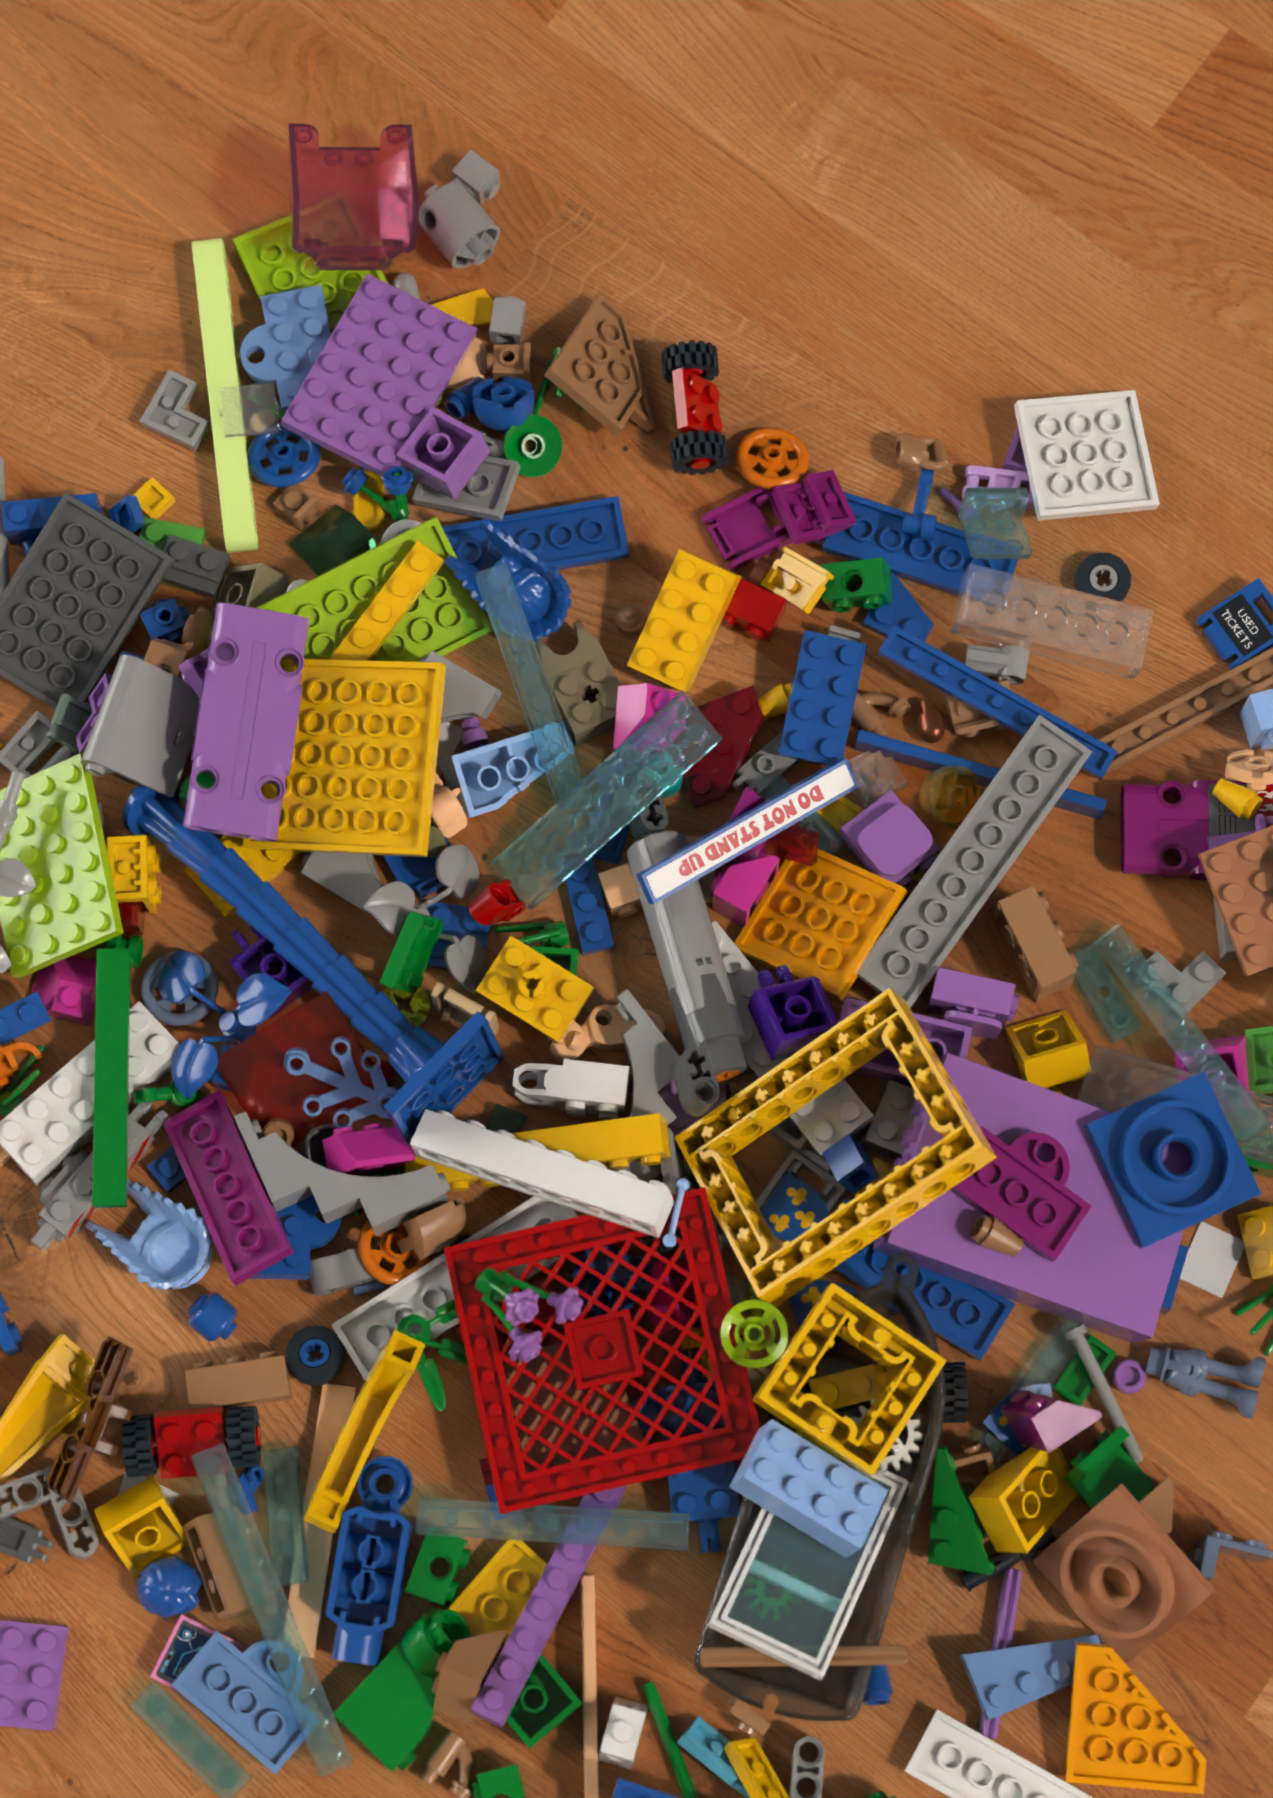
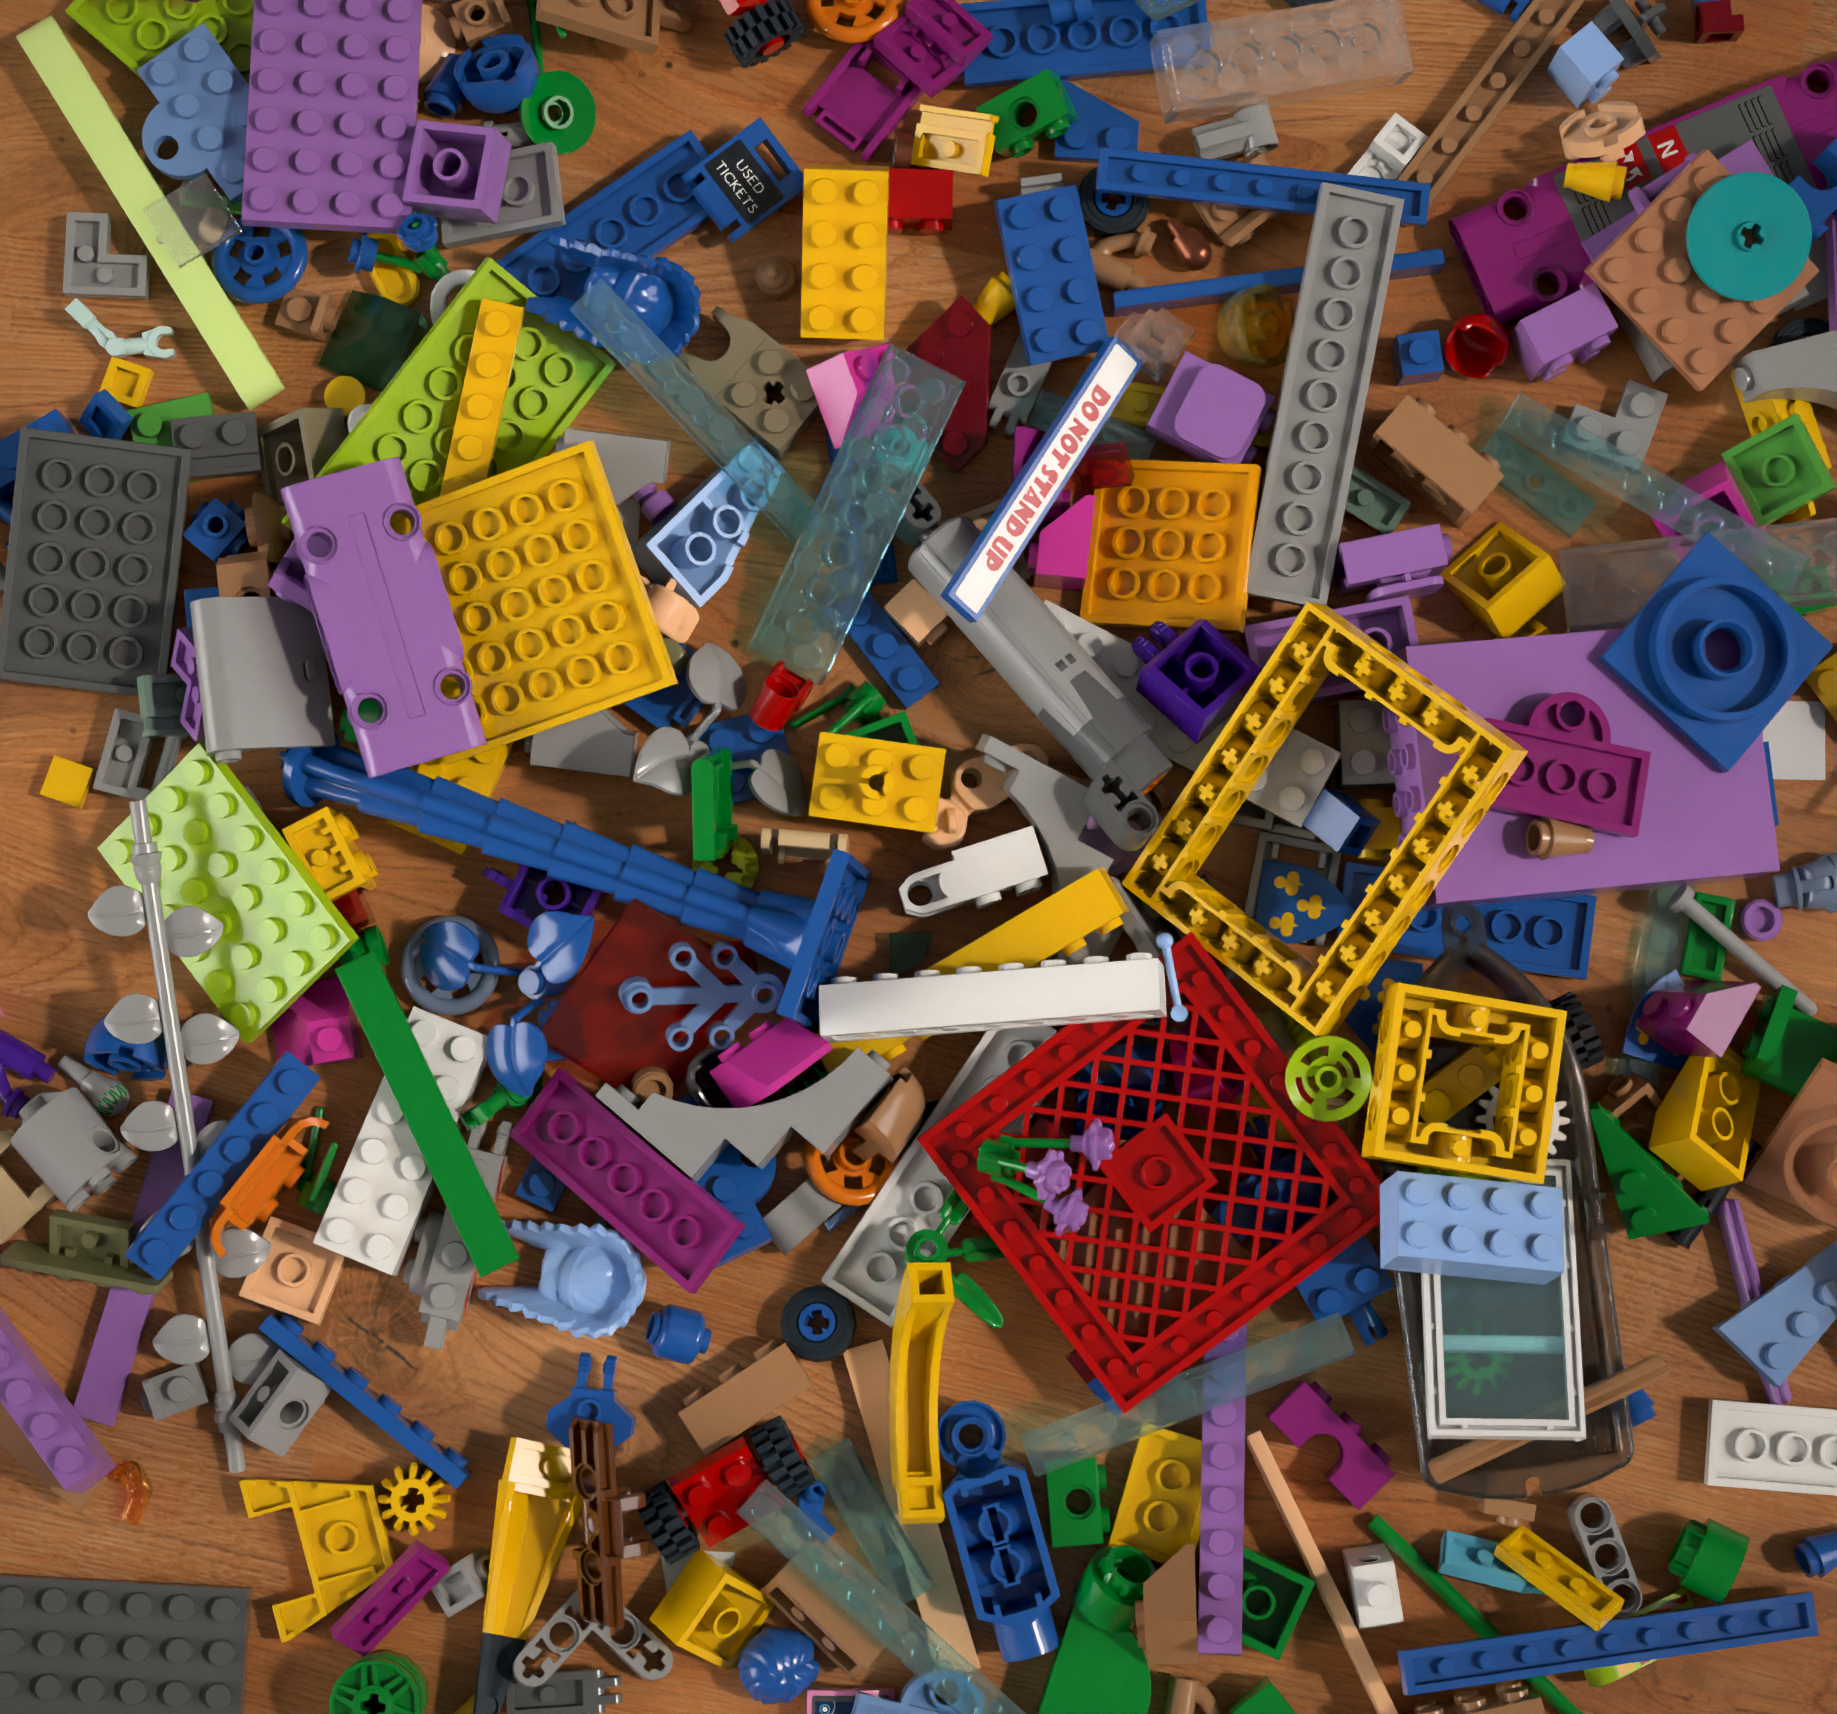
camera: 25 degrees left, 10 degrees up
(138, 1339) = (593, 1403): none -> blue hinge
(160, 473) = (119, 346): none -> light aqua piece
(296, 569) = (345, 393): none -> yellow tile
(635, 545) = (740, 183): none -> container
(635, 1581) = (1359, 1468): none -> magenta arch
(876, 679) = (1105, 221): none -> black bush
(978, 952) = (1374, 502): none -> sand green hinge
(1056, 868) = (1417, 358): none -> blue brick
(1102, 878) = (1476, 345): none -> red hair
(1103, 718) = (1390, 150): none -> white slope
(1166, 895) = (1563, 332): none -> medium lavender brick

